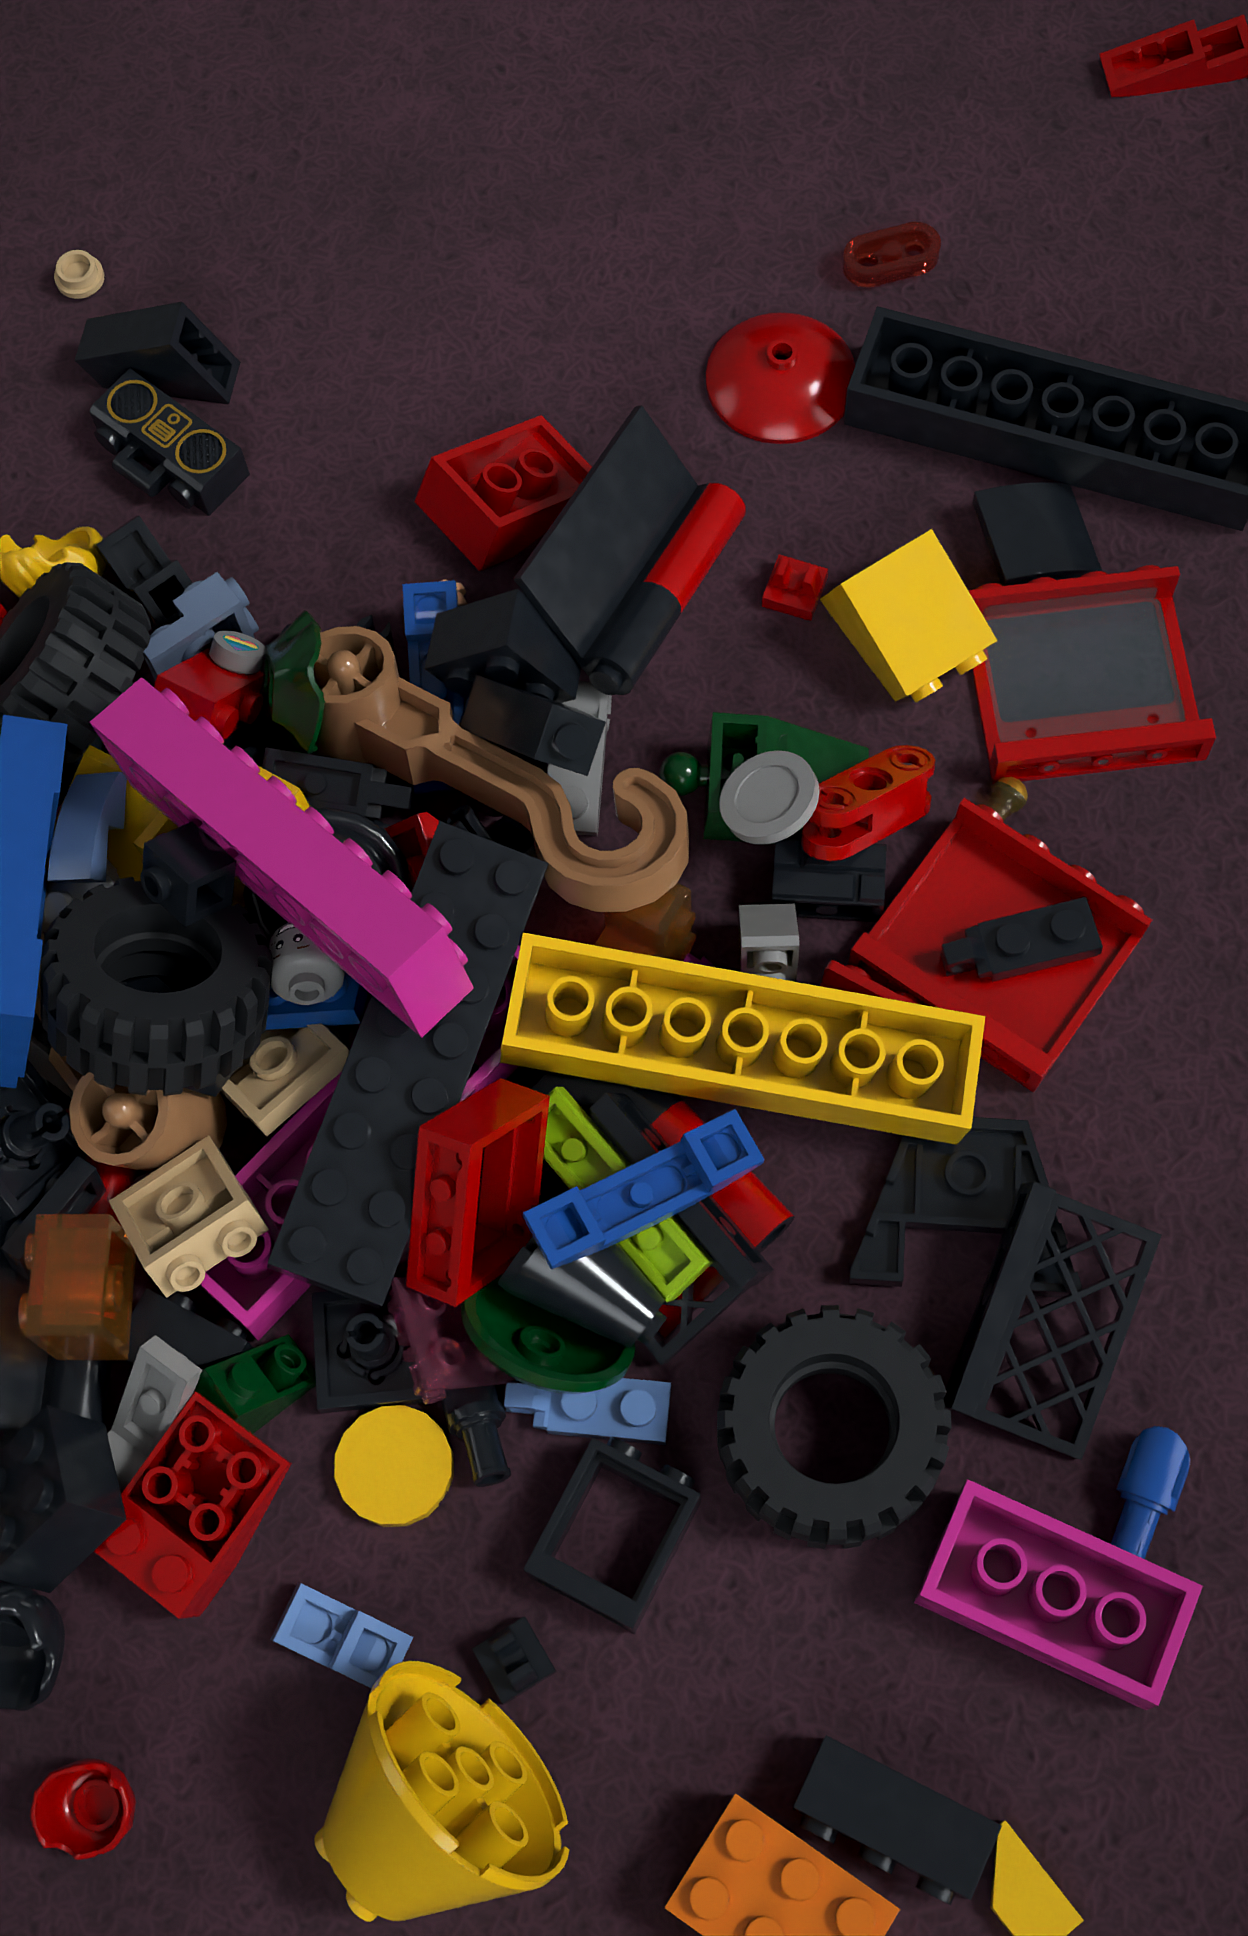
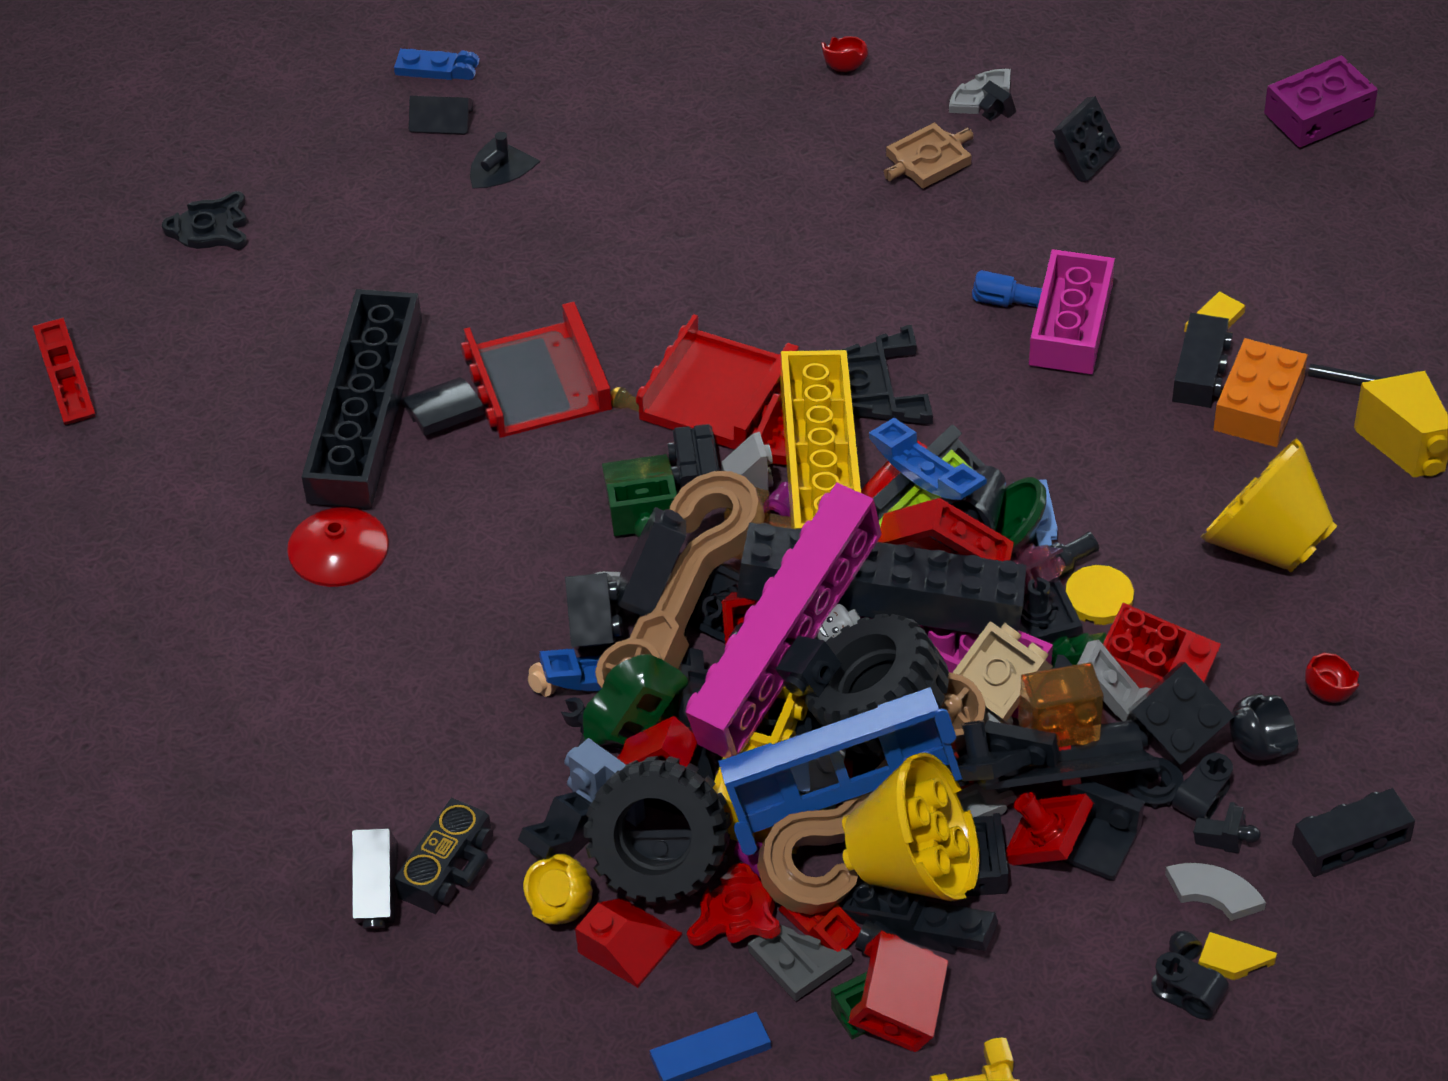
camera: 105 degrees left, 20 degrees down
(78, 274) = (301, 955): tan plate -> none
(237, 652) = (619, 745): light grey tile -> none
(339, 1636) = (1199, 597): medium blue slope -> none
(501, 489) = (455, 660): red slope -> none
(514, 1660) = (1183, 522): black tile -> none
(623, 1461) = (1106, 467): black window -> none
(628, 554) = (515, 556): black door -> none
(769, 797) = (667, 461): light grey piece -> none
(794, 587) = (496, 511): red tile -> none
(847, 1347) = (1015, 433): black tyre -> none
(869, 802) = (650, 437): red piece -> none
(889, 254) = (243, 505): clear red plate -> none
(911, 618) = (514, 446): yellow slope -> none
(1003, 1299) = (932, 349): black fence -> none
(1025, 942) = (715, 371): black hinge -> none

